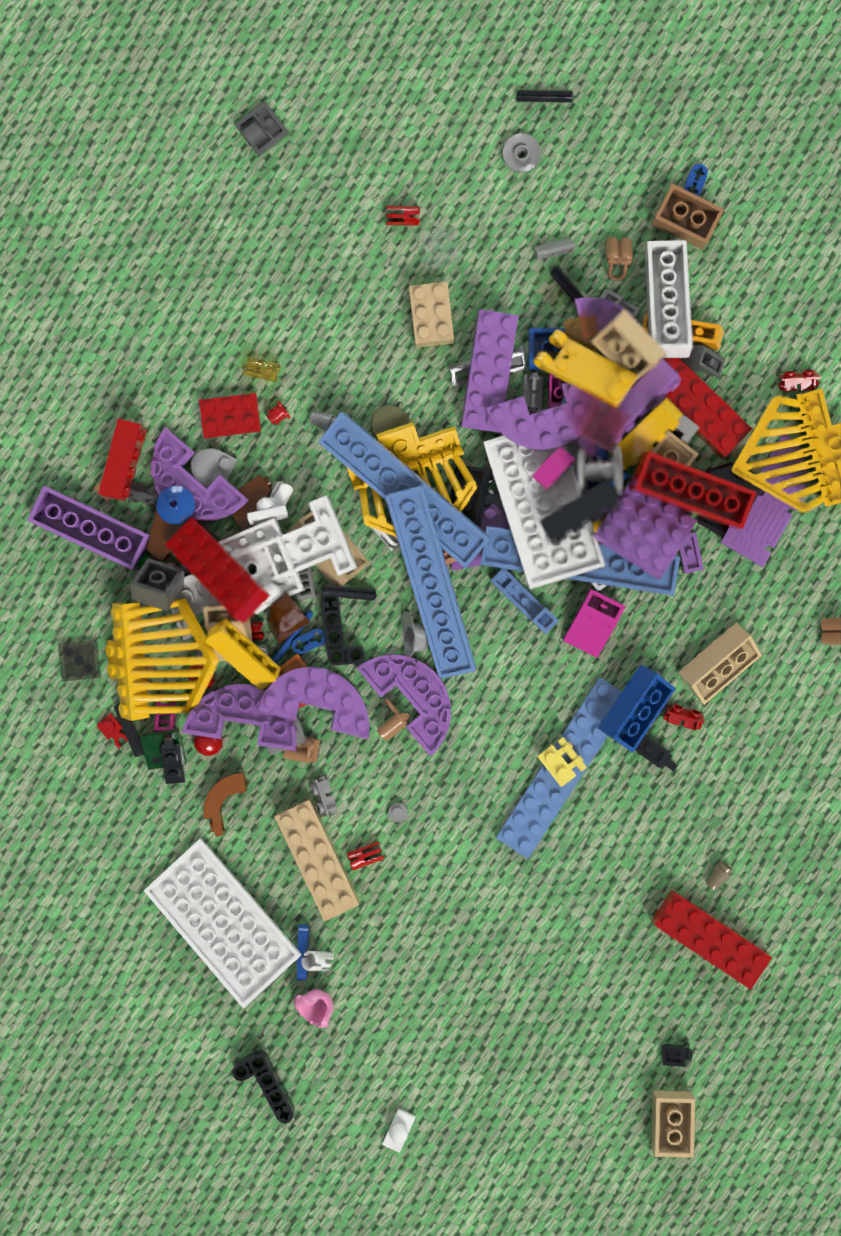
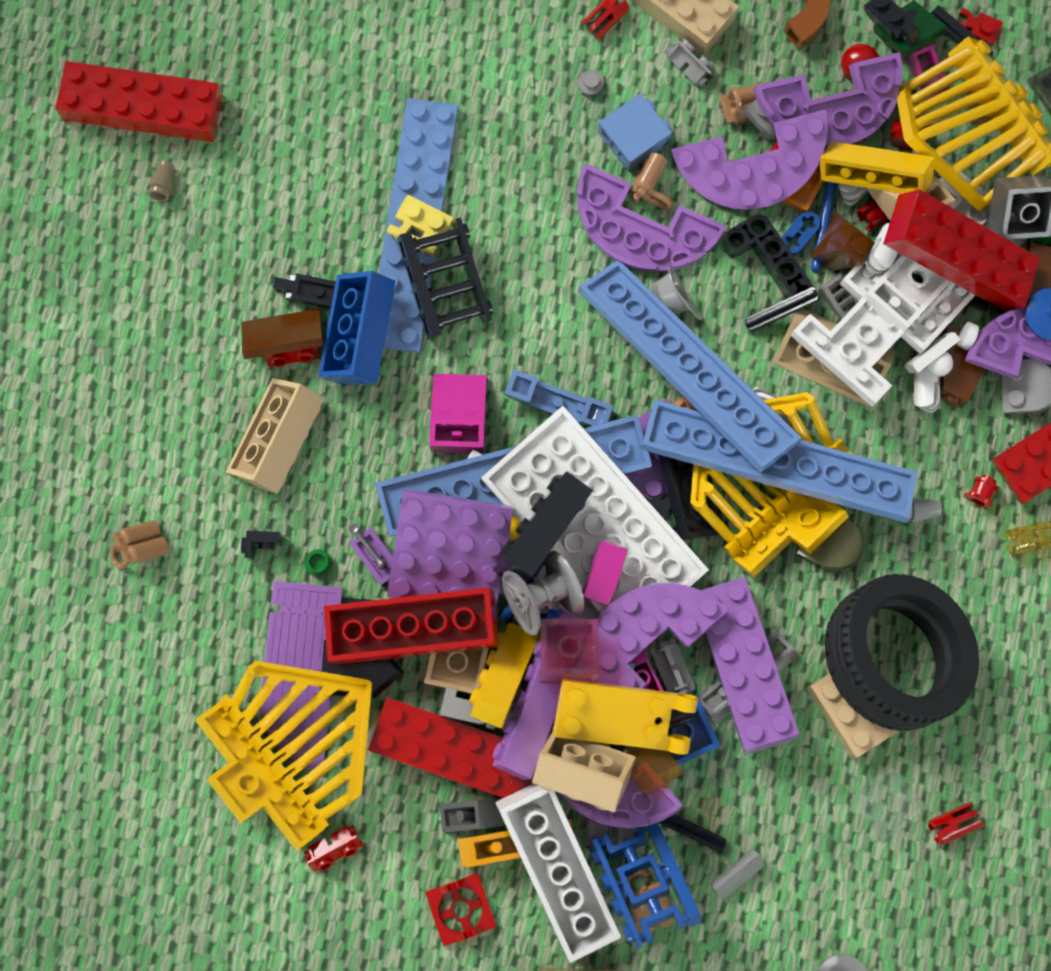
camera: 155 degrees right, 10 degrees down
(238, 515) = (968, 335): none -> white tile
(350, 323) = (944, 627): none -> black tyre
(385, 762) = (635, 131): none -> medium blue brick
(578, 727) = (418, 272): none -> black fence
(603, 266) = (665, 872): none -> blue fence
(686, 729) = (281, 333): none -> reddish brown tile
(696, 576) = (354, 529): none -> flat silver hinge
(728, 566) = (318, 562): none -> green plate
(750, 294) = (486, 919): none -> red piece
(757, 596) = (264, 539): none -> black bracket

